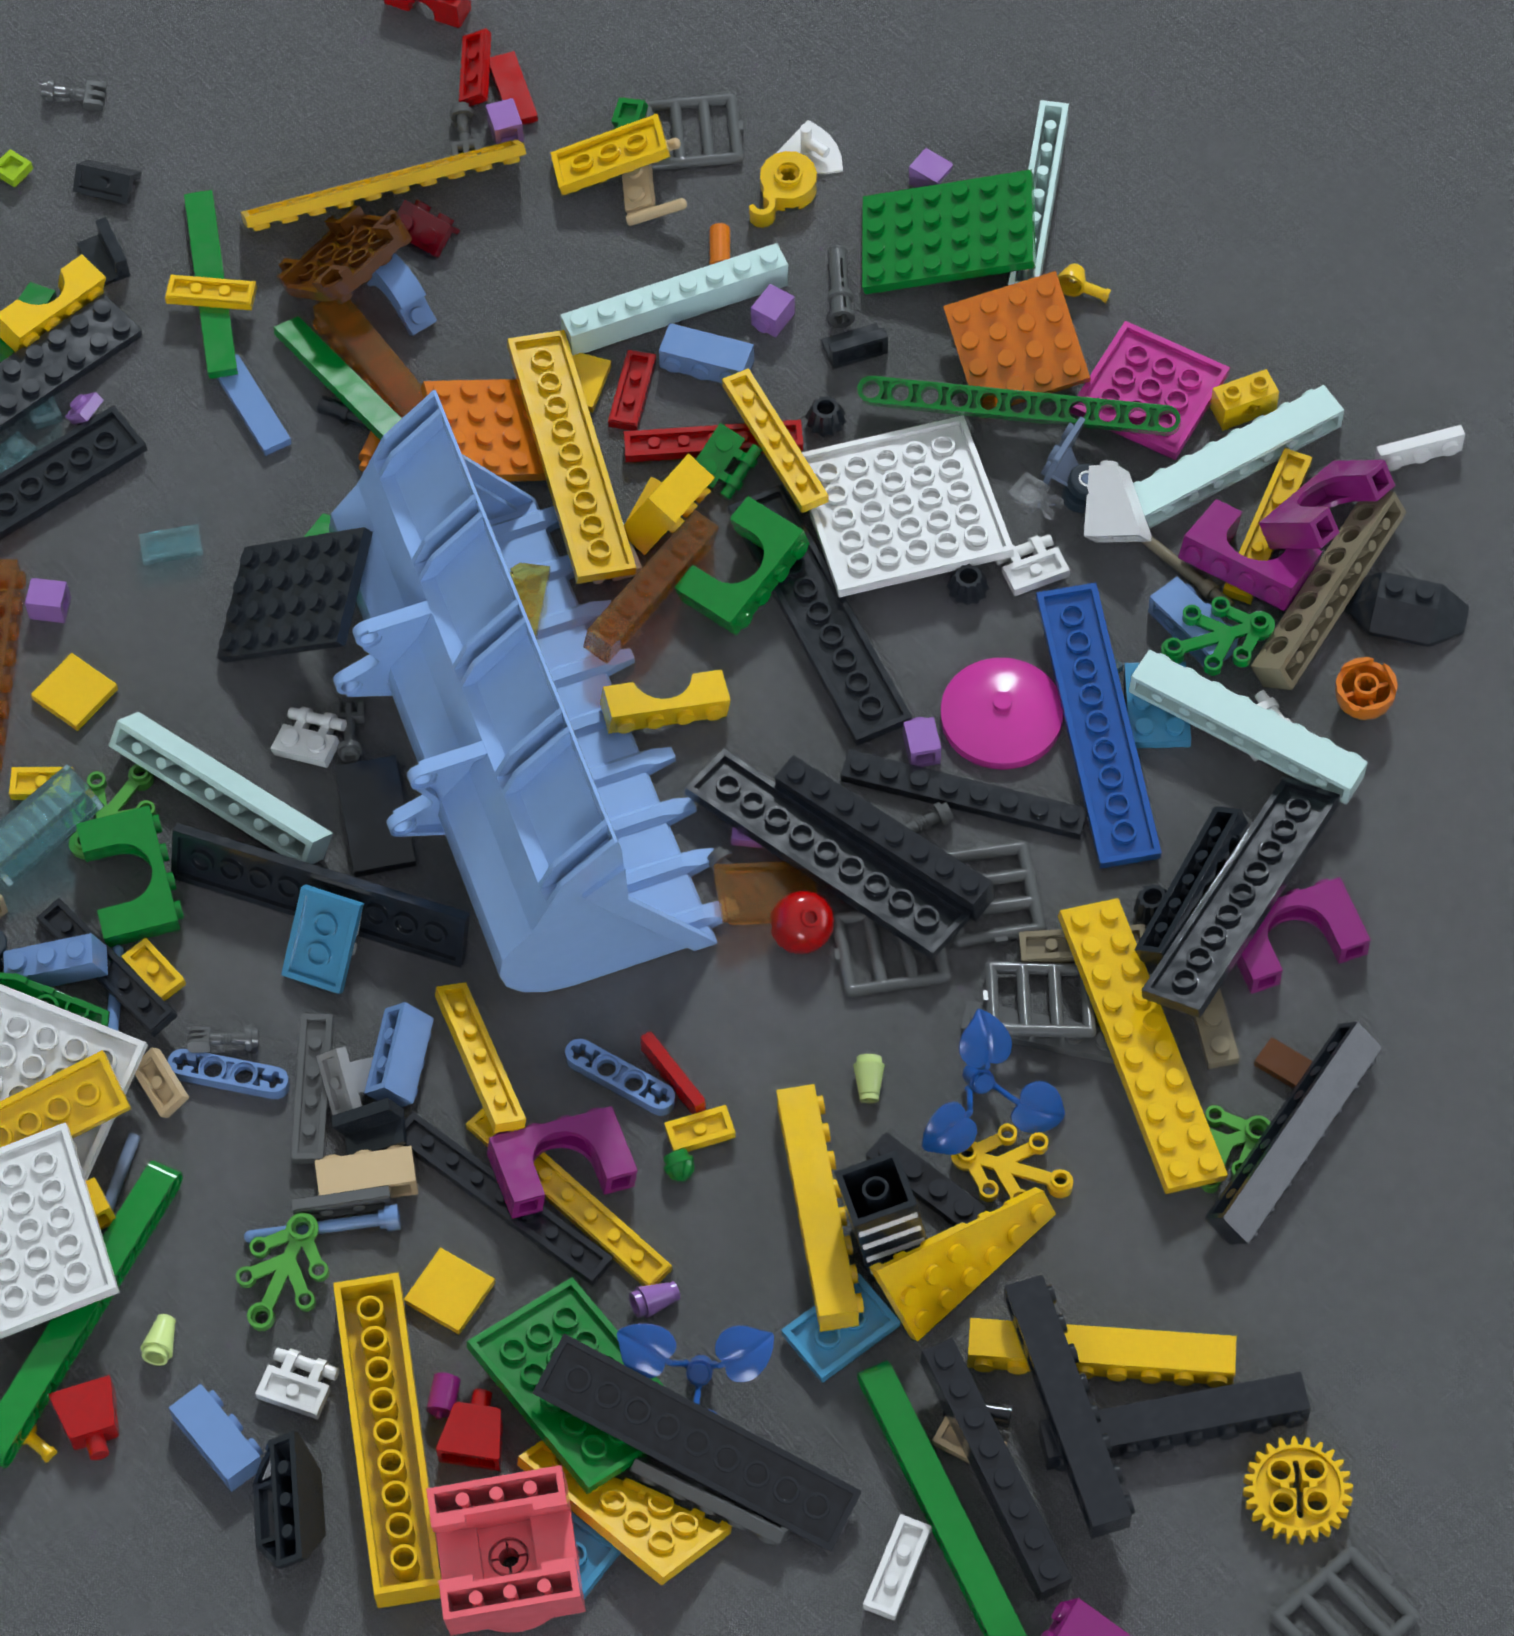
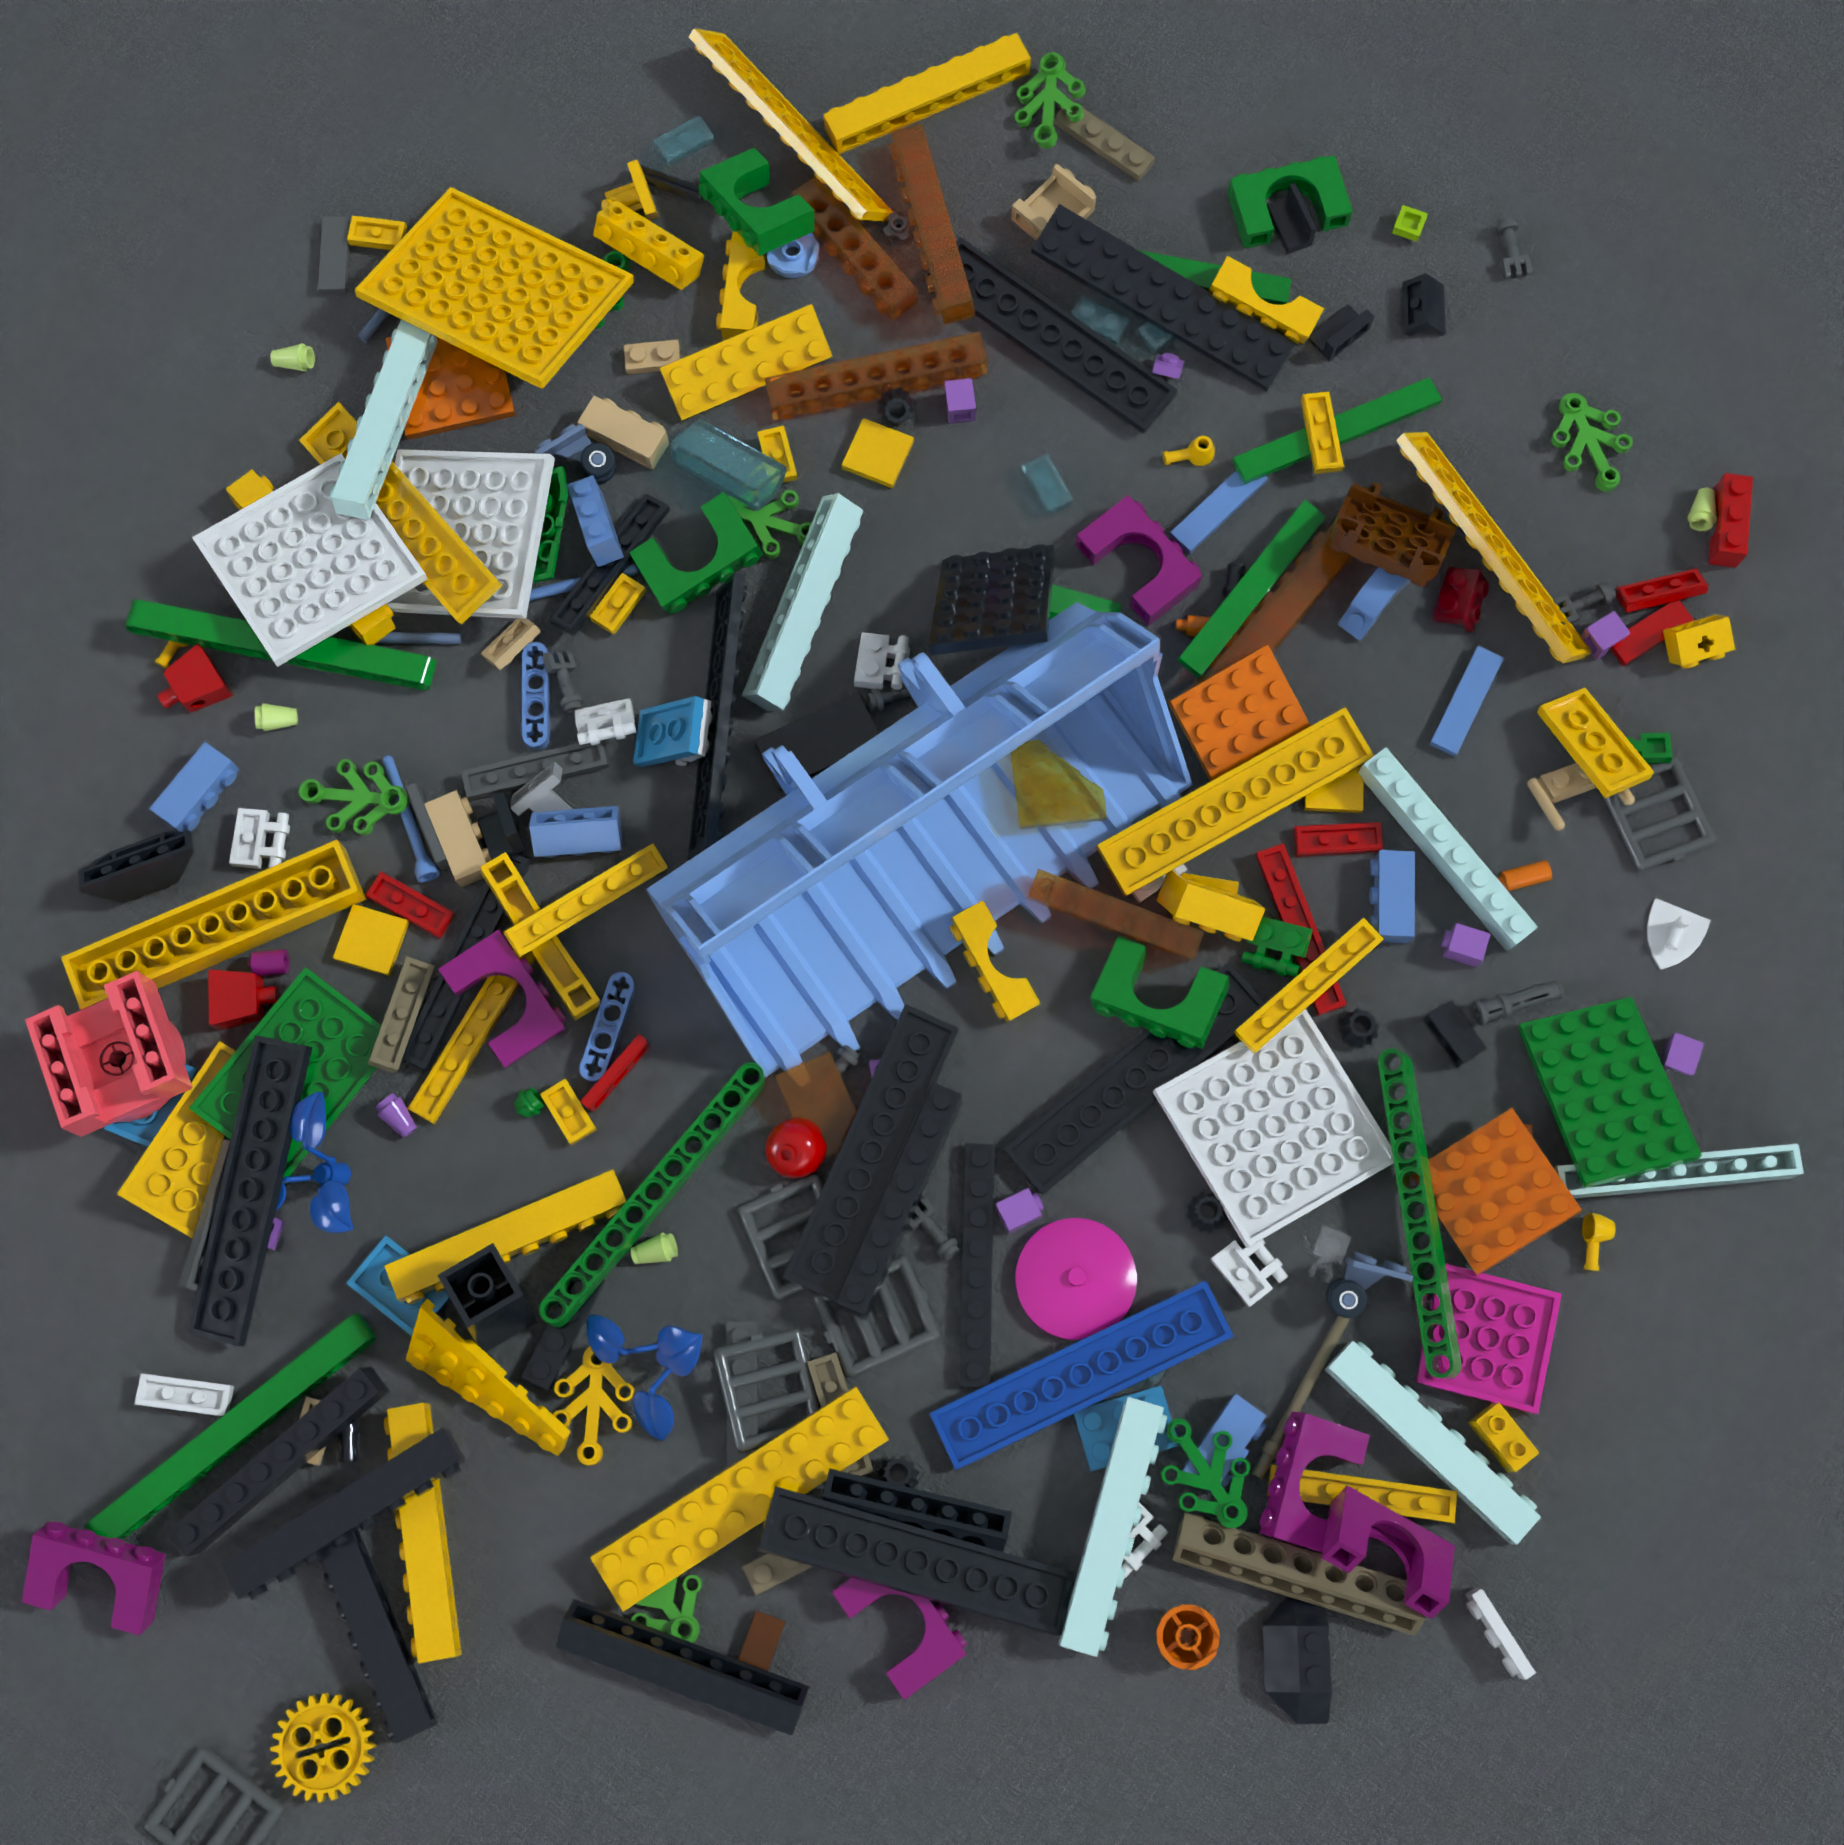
camera: 75 degrees right, 15 degrees up
(32, 658) = (895, 405): none -> black piece
(184, 407) = (1194, 453): none -> yellow bar
(266, 87) = (1590, 437): none -> bright green plant
(278, 1007) = (605, 722): none -> white plate
(308, 455) = (1129, 524): none -> magenta arch
(409, 15) = (1703, 511): none -> yellowish green cone
(423, 1243) = (410, 905): none -> red tile
(453, 1122) = (551, 955): none -> yellow arch
(529, 251) = (1466, 701): none -> medium blue tile
(537, 50) = (1699, 640): none -> yellow brick
(547, 1265) = (401, 1015): none -> dark tan plate
(785, 182) = (1606, 918): yellow piece -> none
(805, 1046) = (651, 1208): none -> green beam
(1113, 506) = (1328, 1334): white slope -> none

